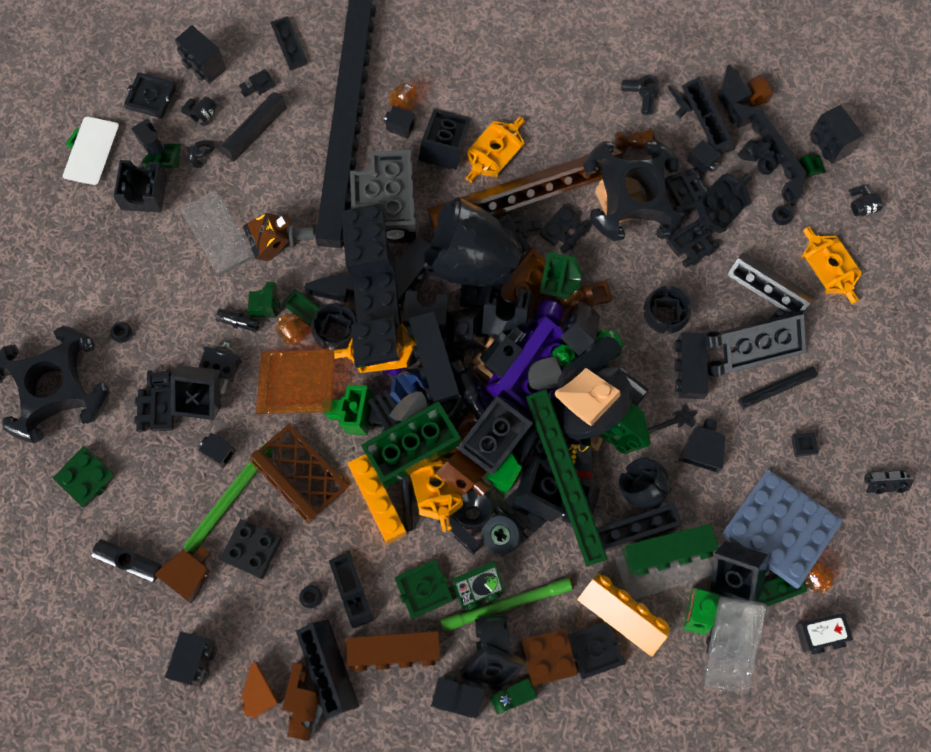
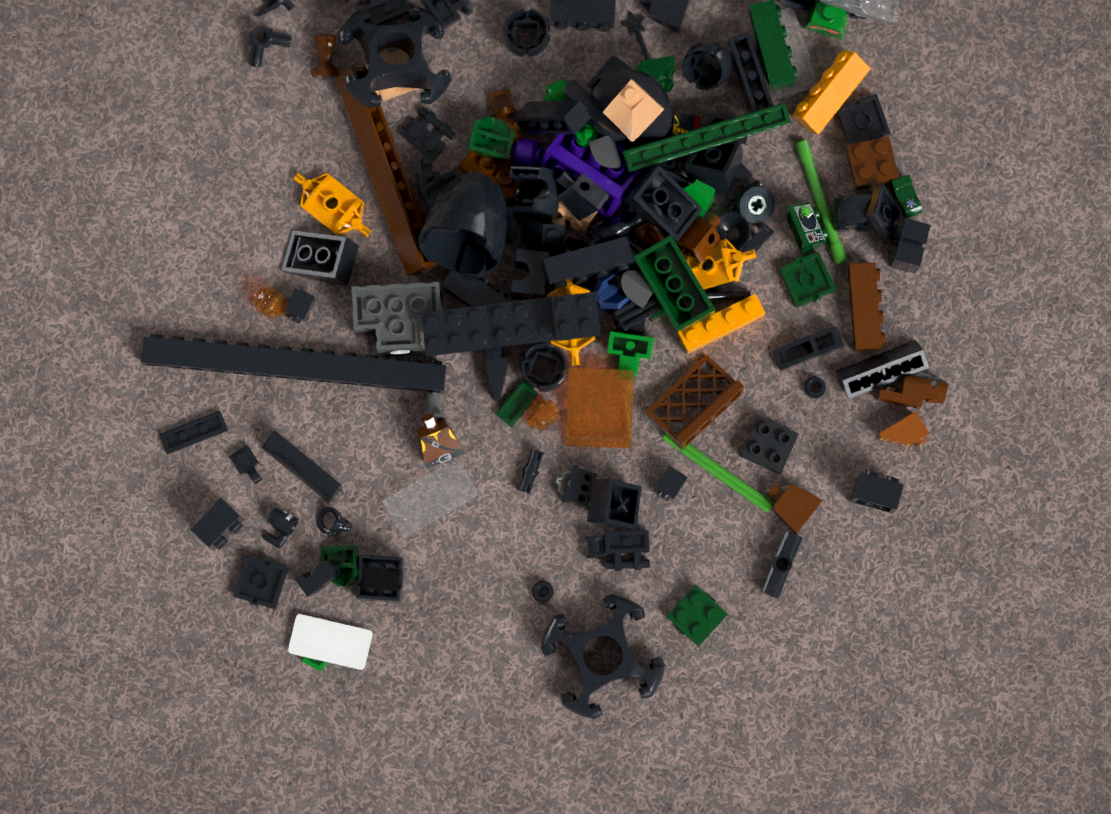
camera: 85 degrees left, 10 degrees up
(264, 302) = (512, 442): dark green brick -> none

